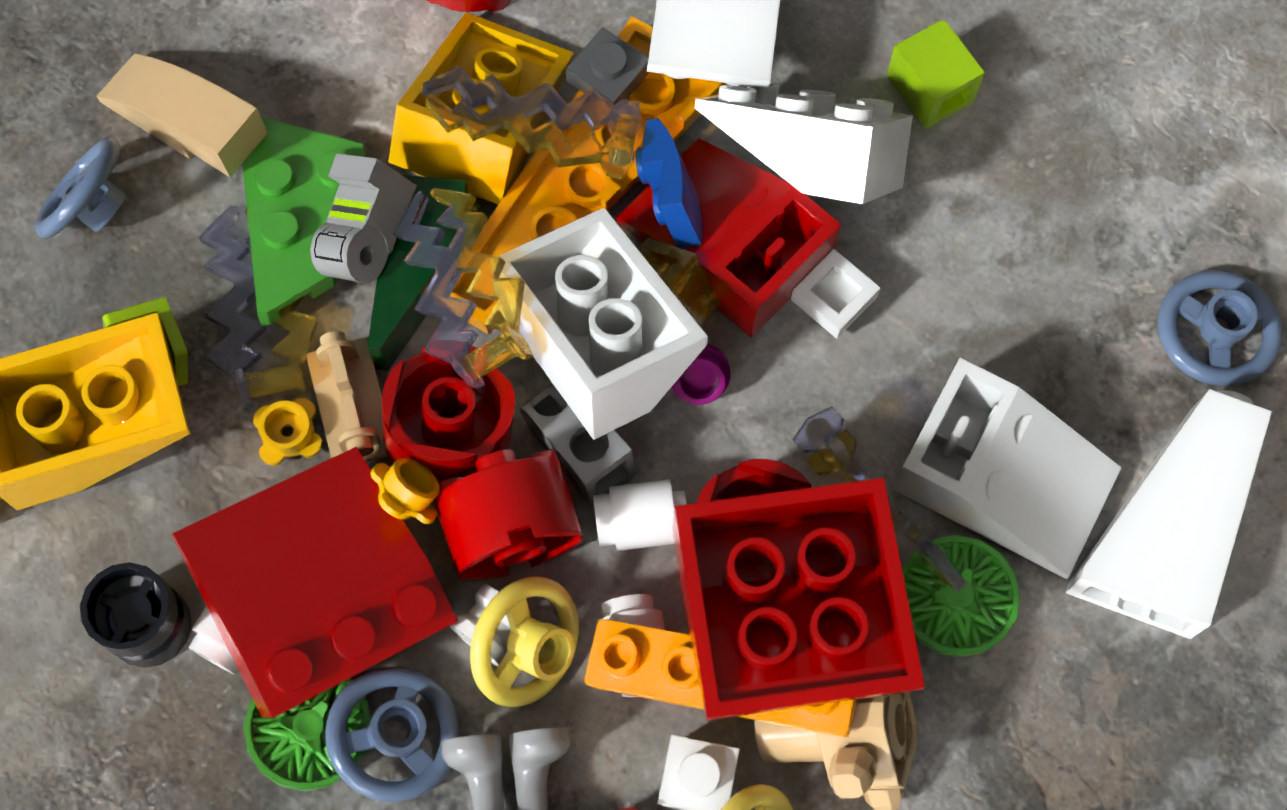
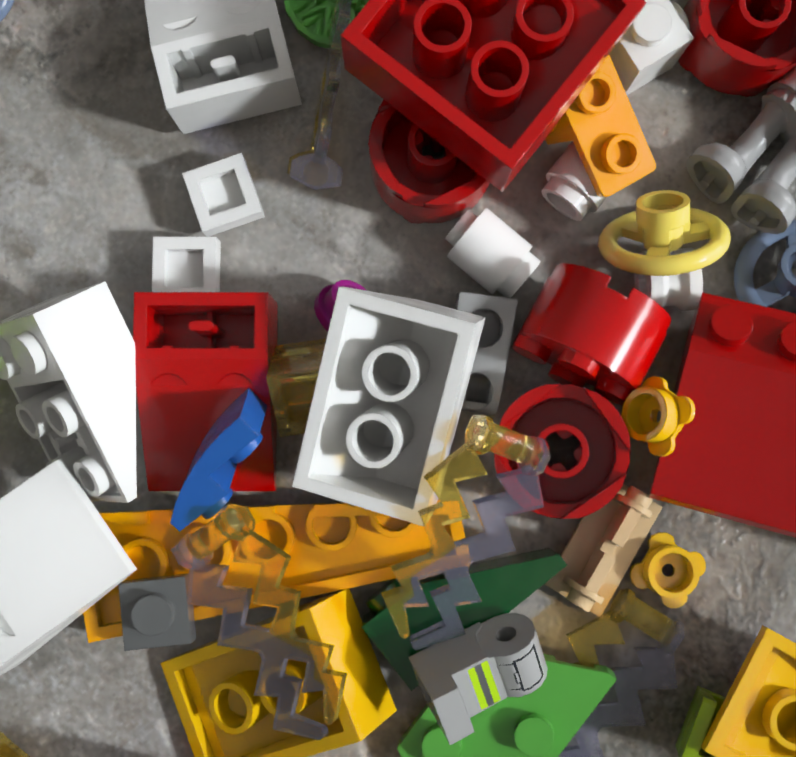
camera: 135 degrees left, 15 degrees up
(868, 366) = (223, 195): none -> white plate

